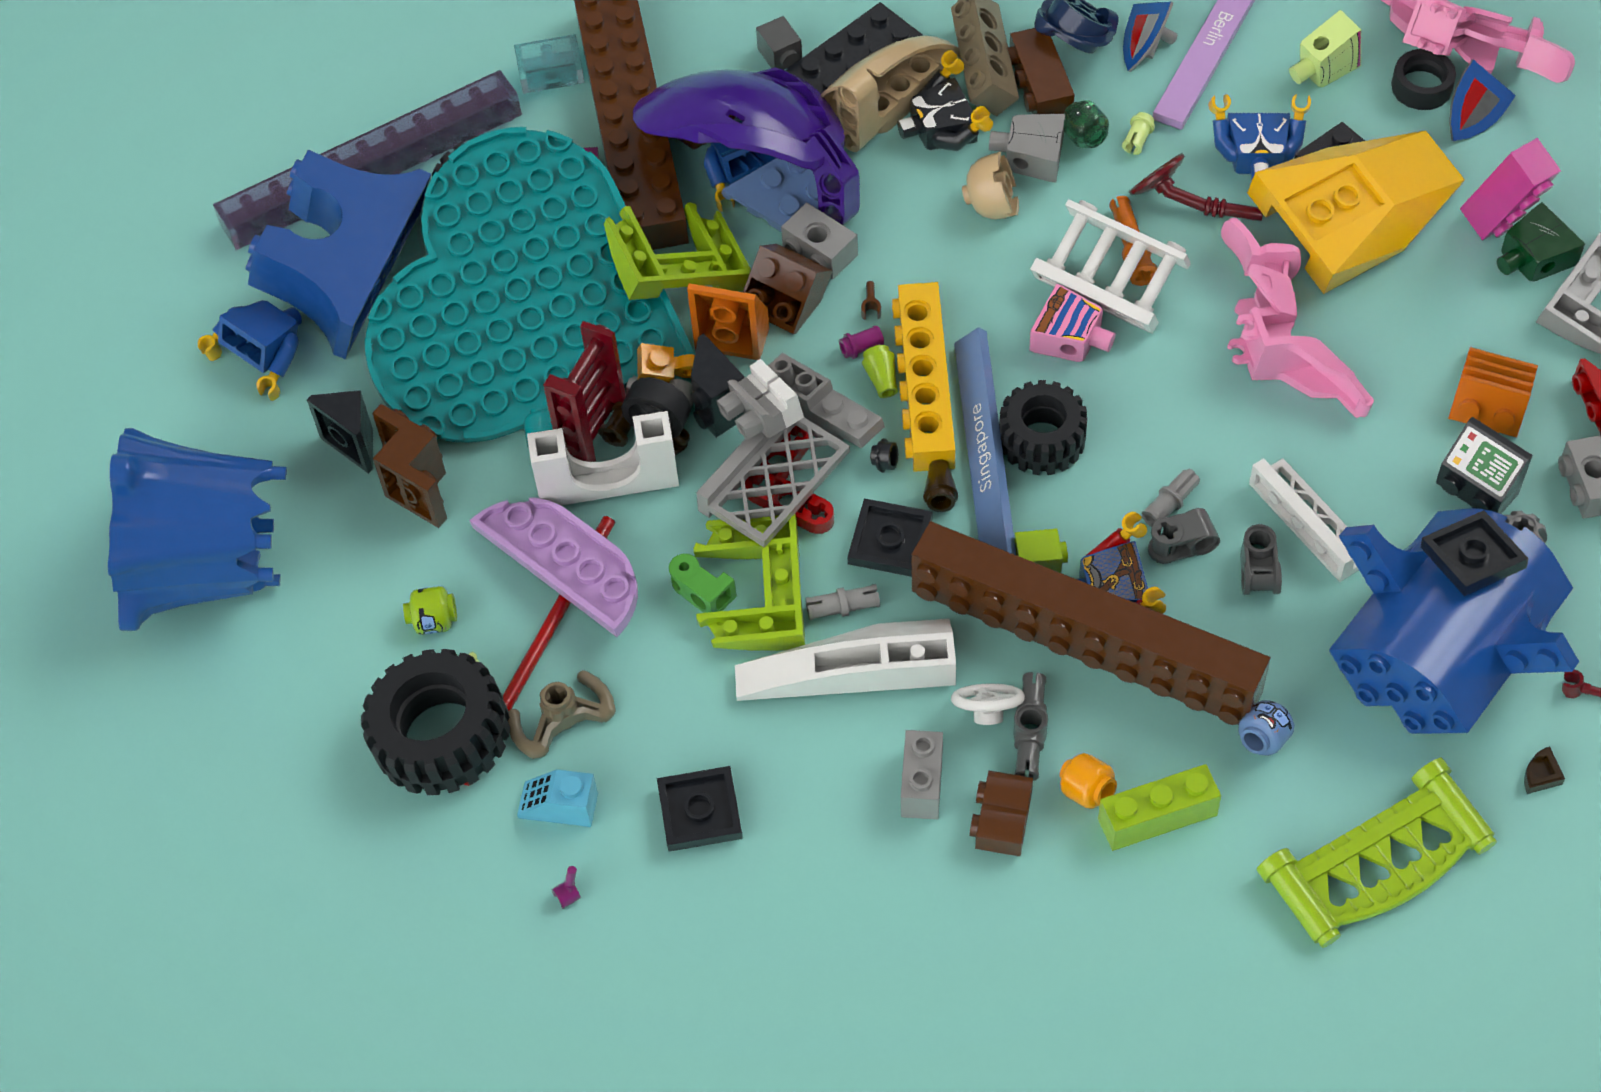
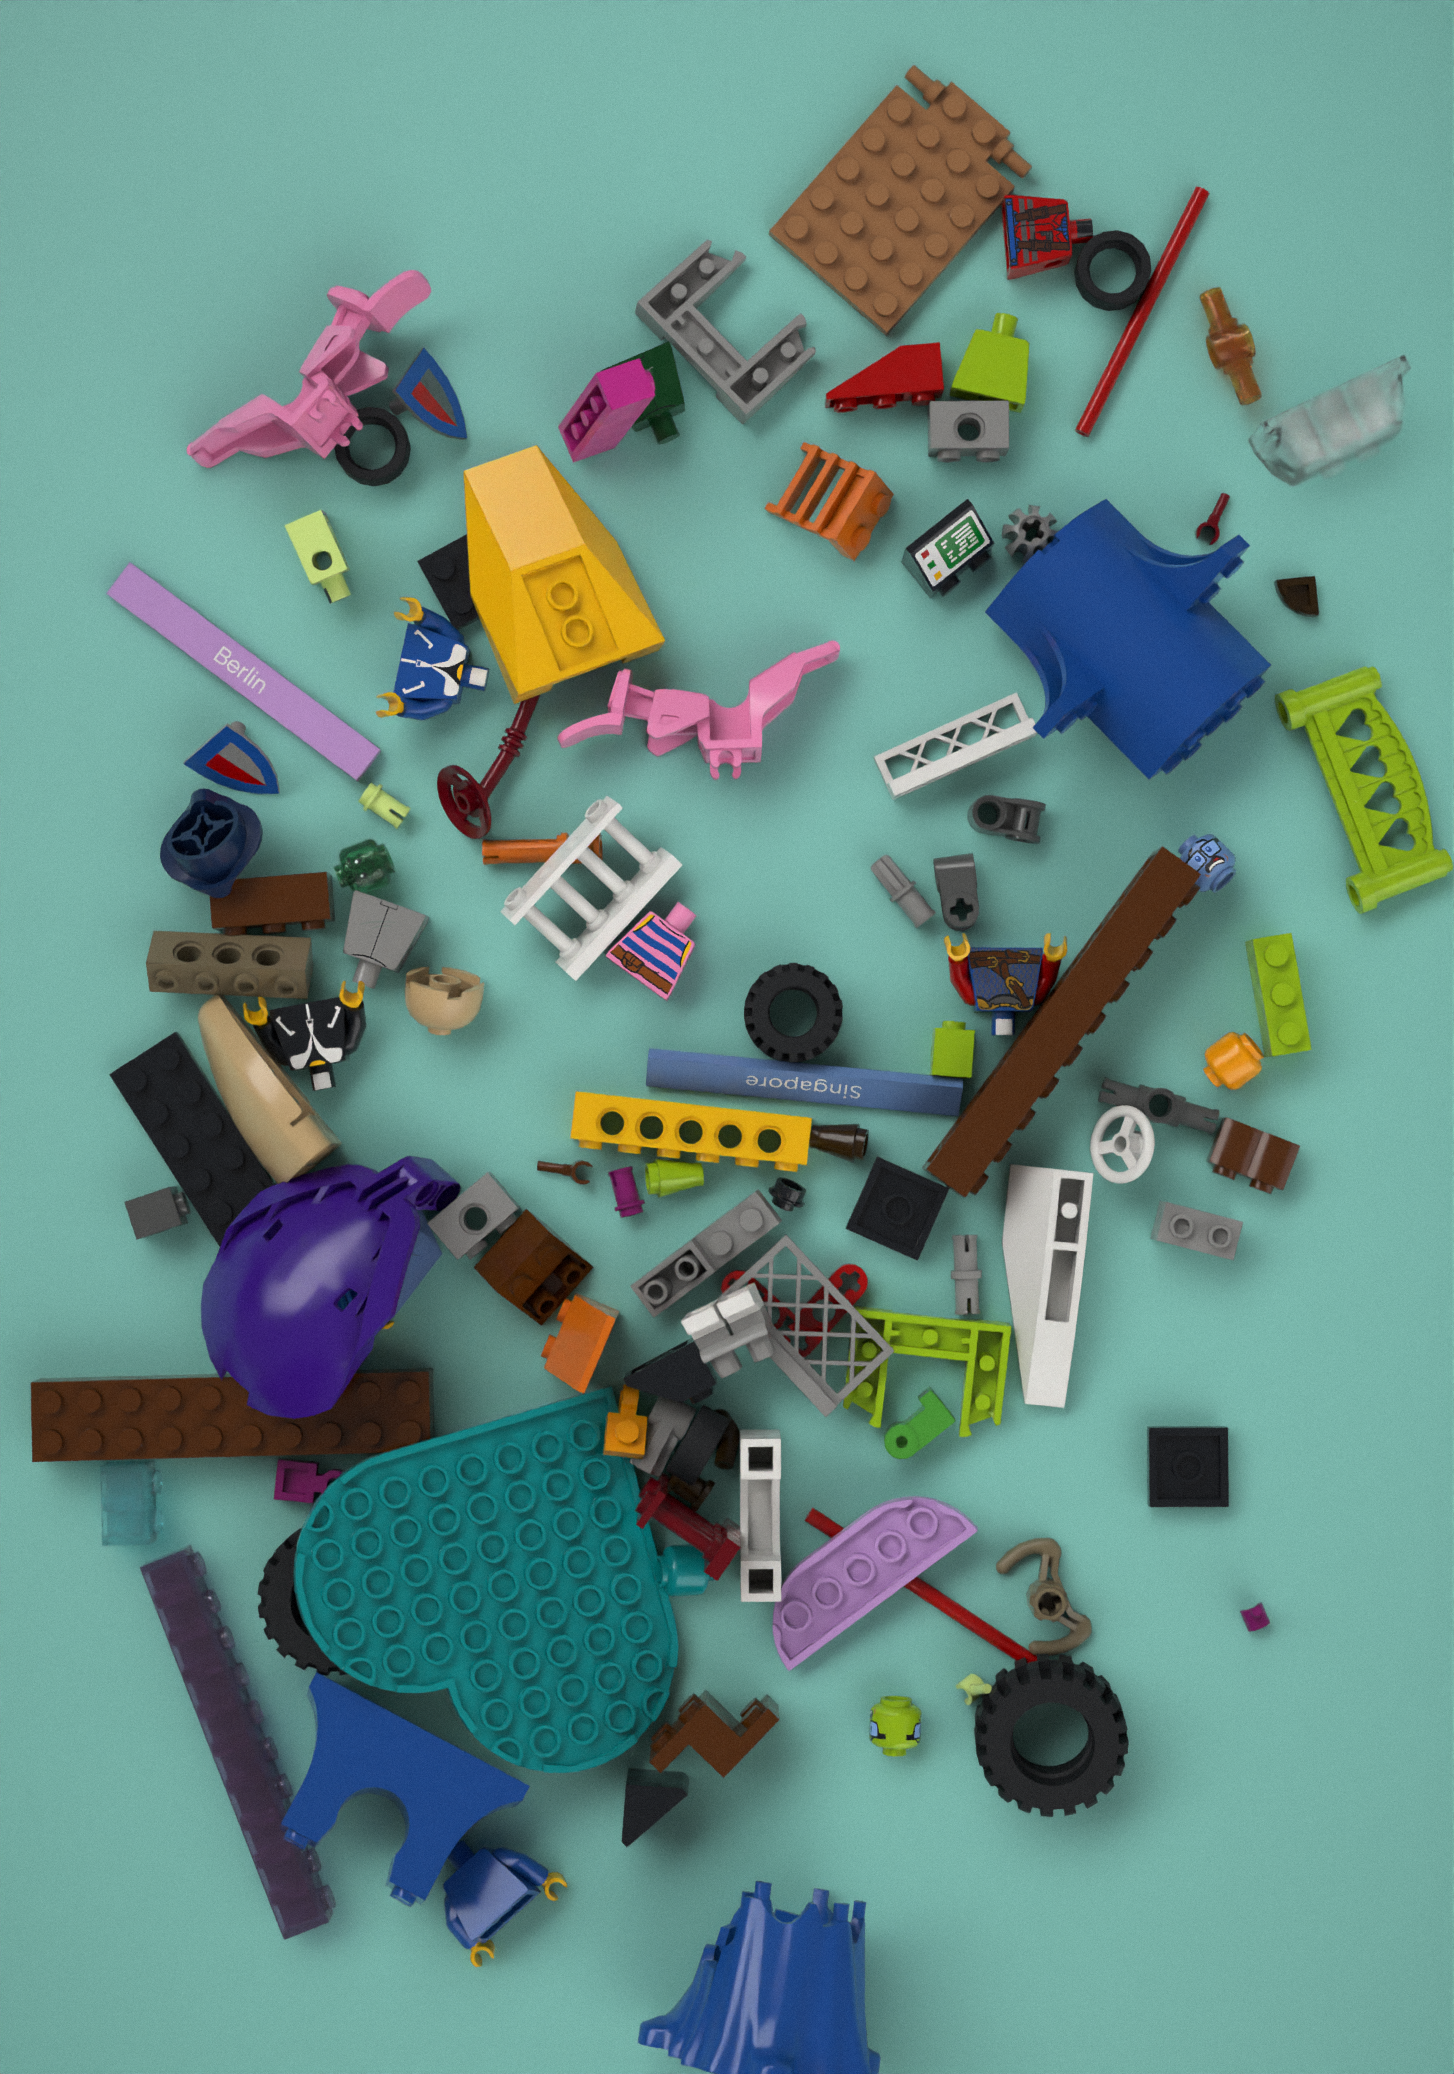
camera: 85 degrees left, 30 degrees up
(560, 798) = (1151, 1612): medium azure slope -> none
(646, 274) = (519, 1432): lime wedge -> none
(1474, 553) = (1092, 602): black plate -> none

